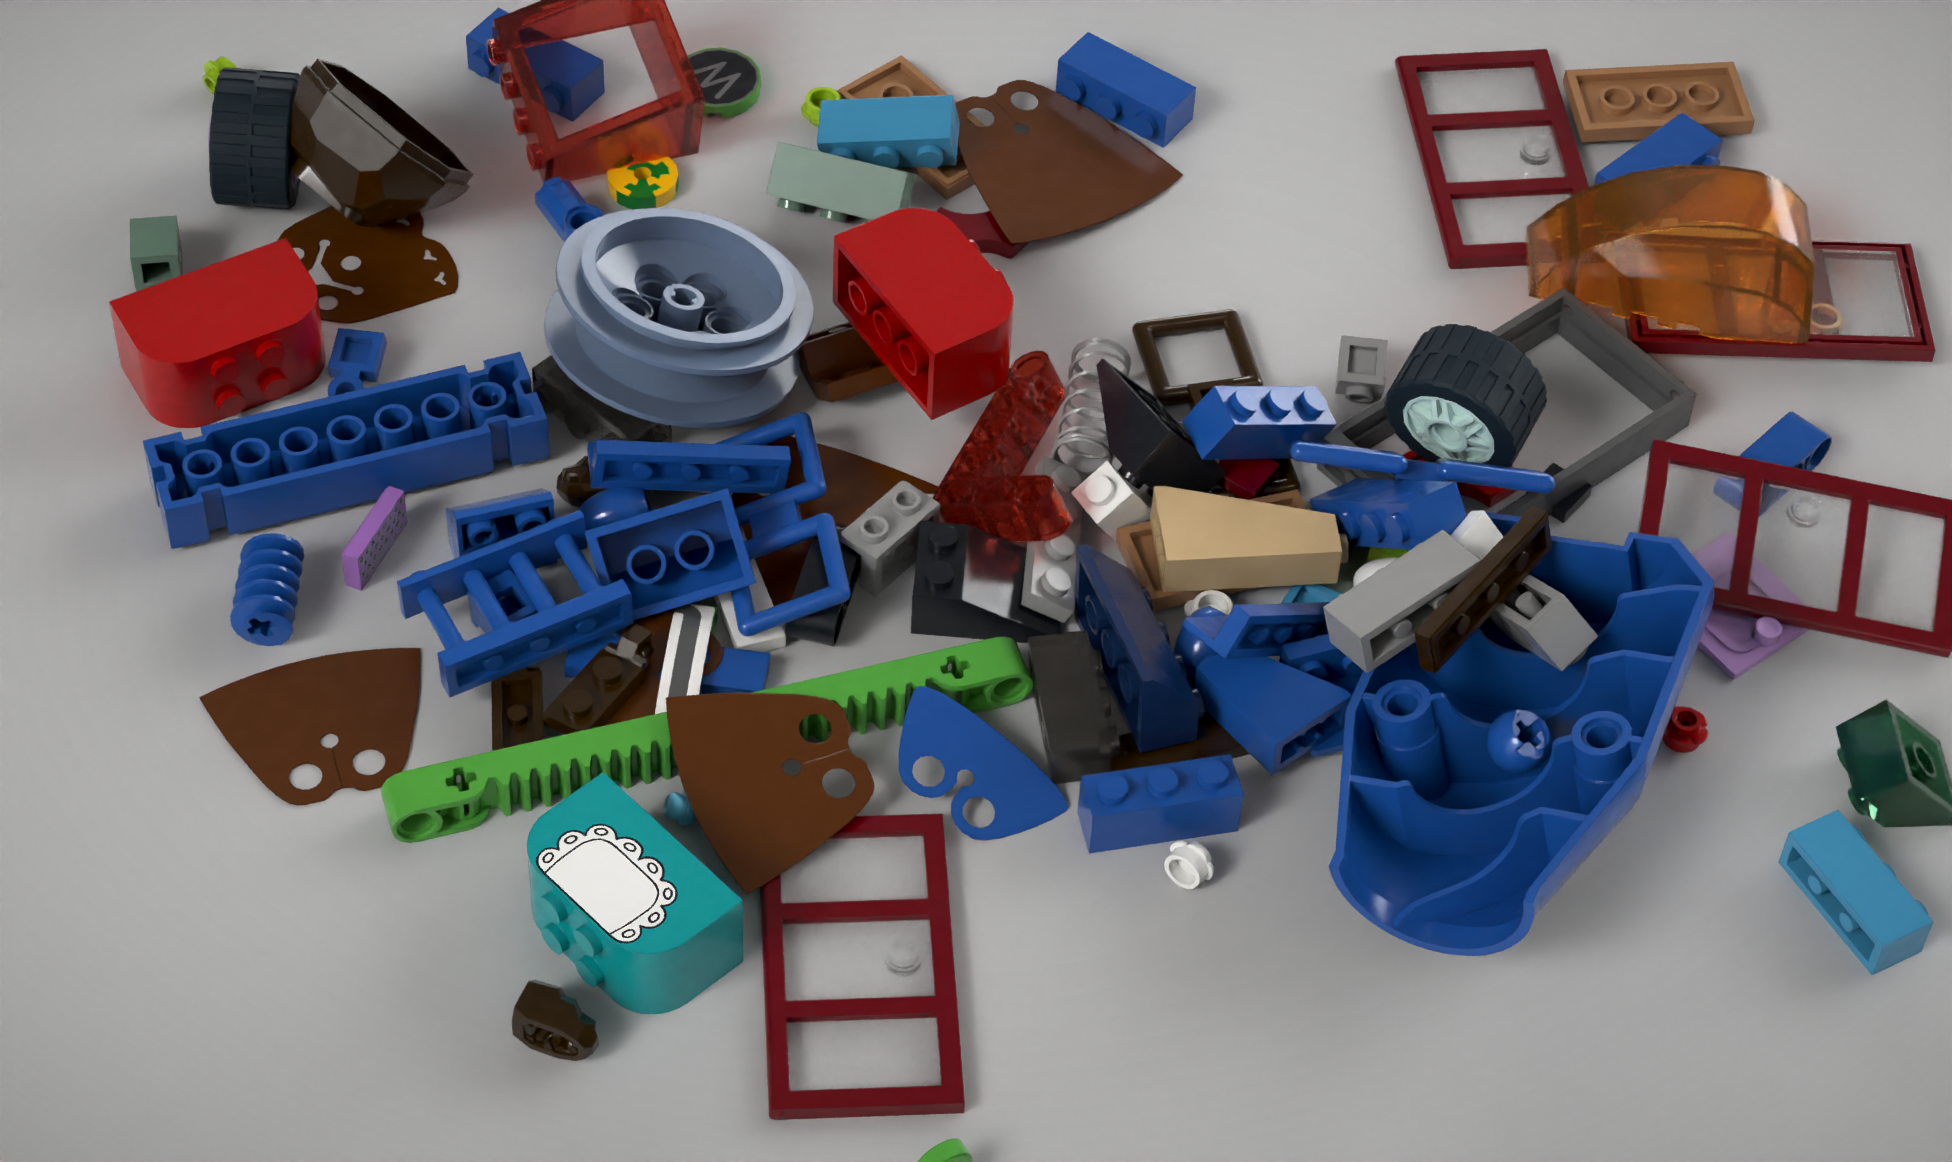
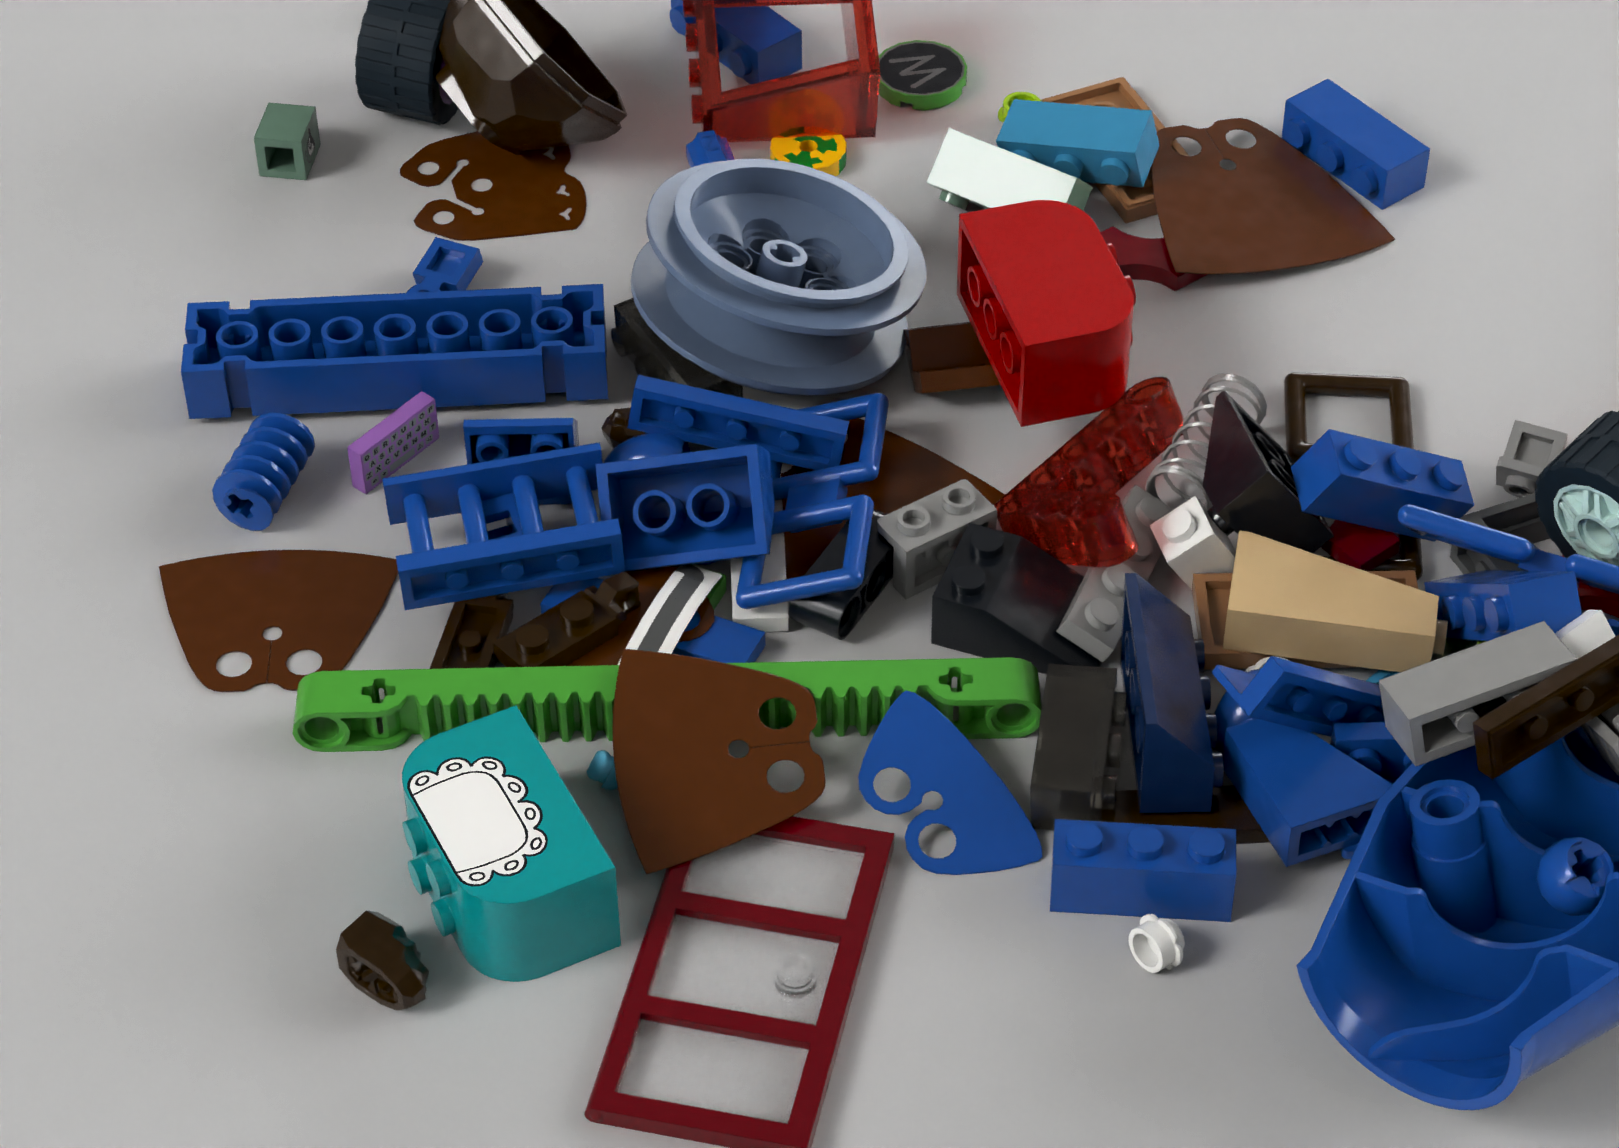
camera: 20 degrees right, 5 degrees down
(222, 337) = (315, 221): red brick -> none

